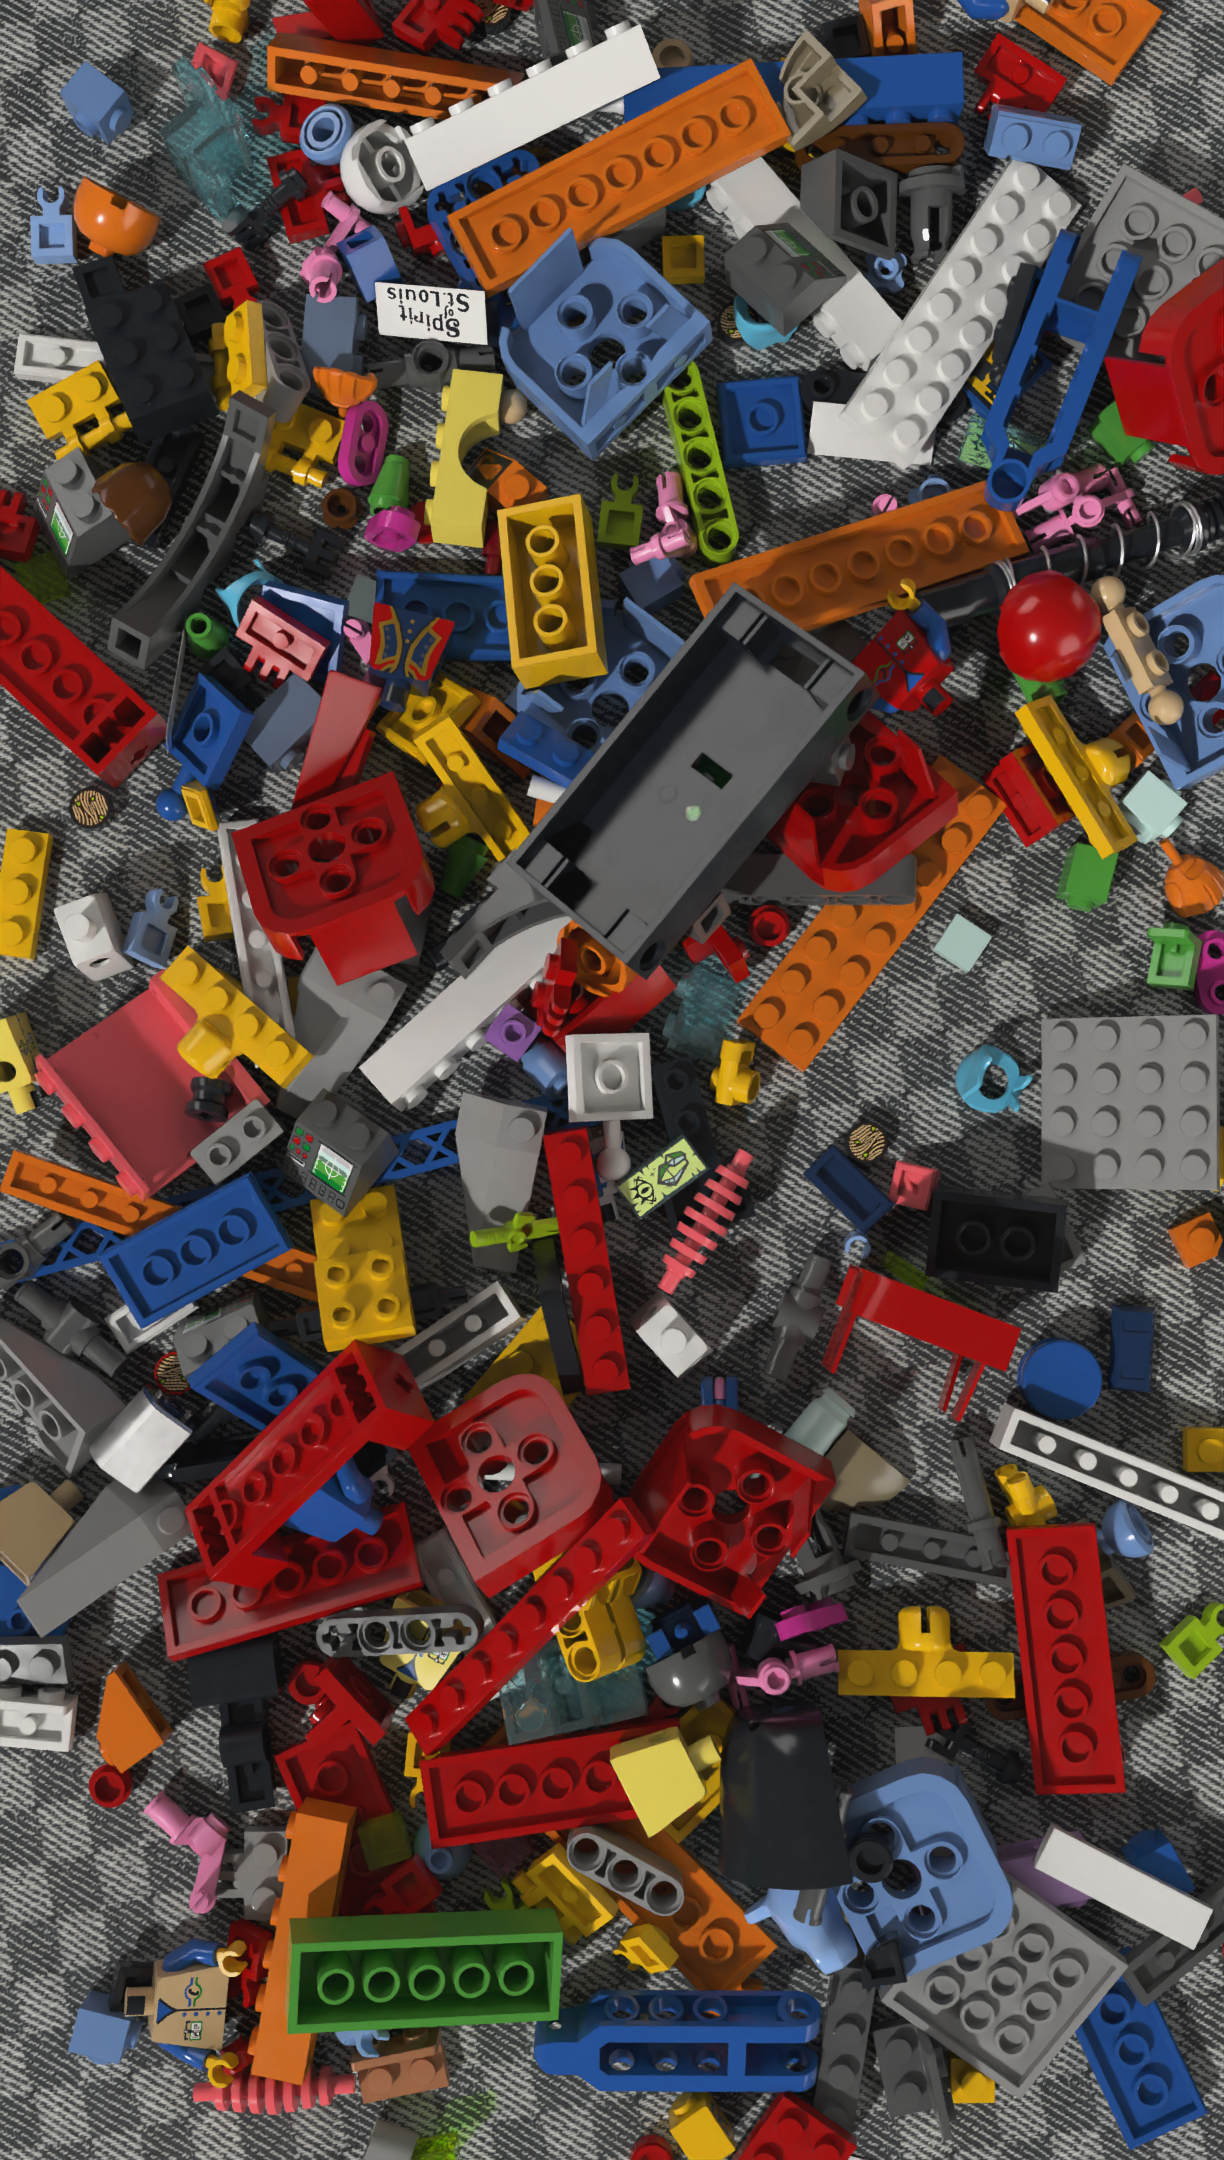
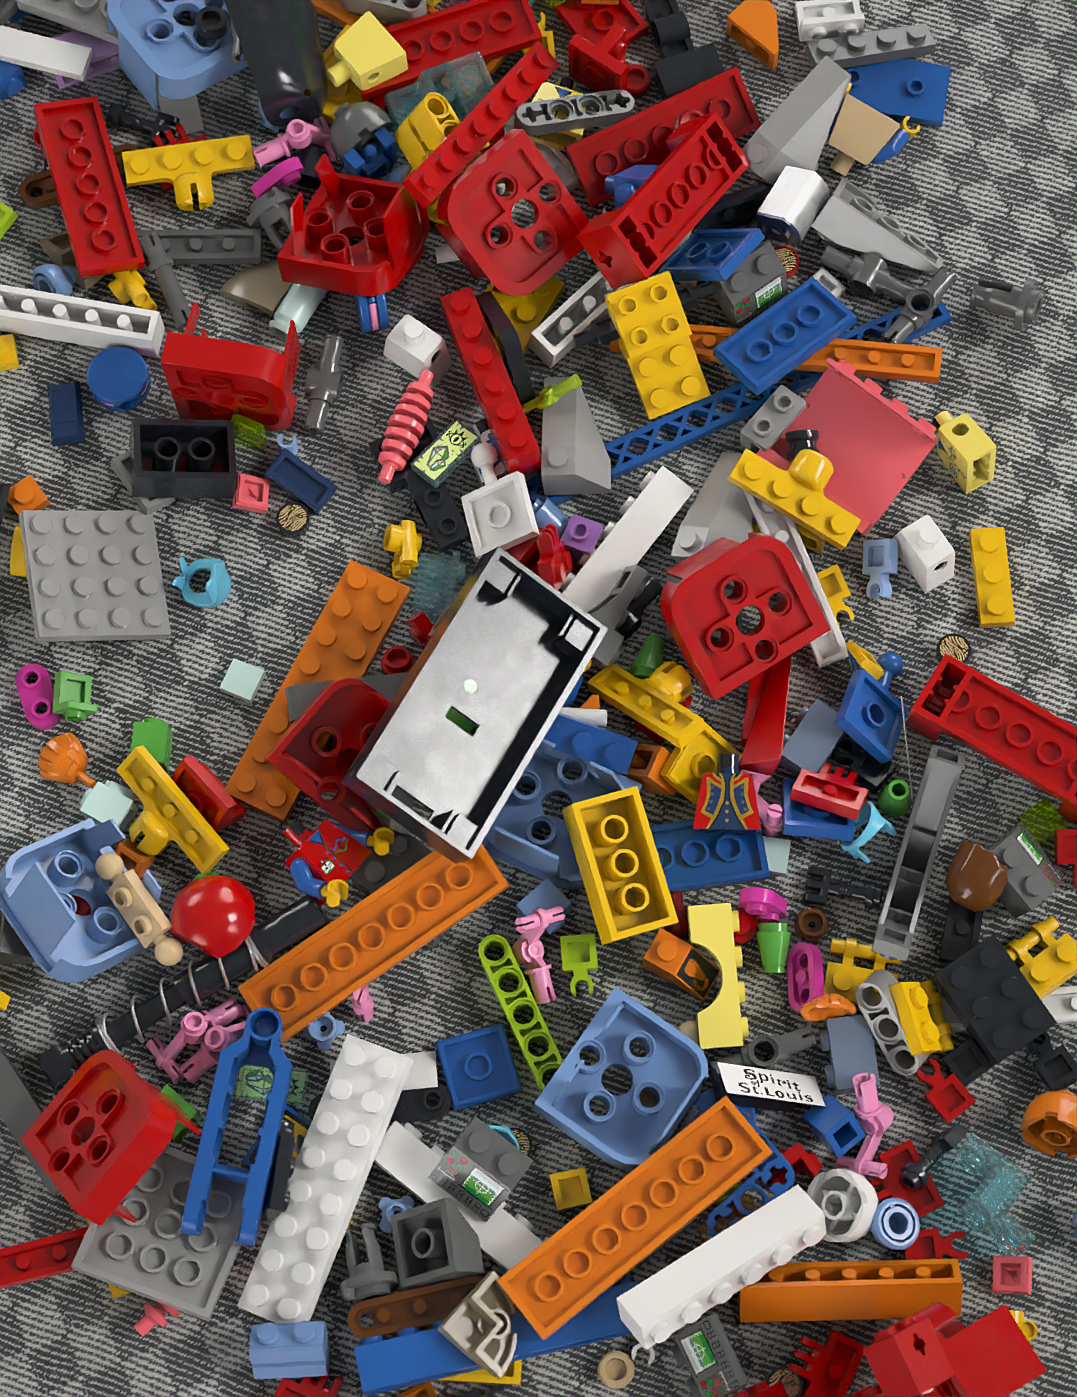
camera: 170 degrees right, 15 degrees down
(336, 1152) = (696, 427): dark grey slope -> none

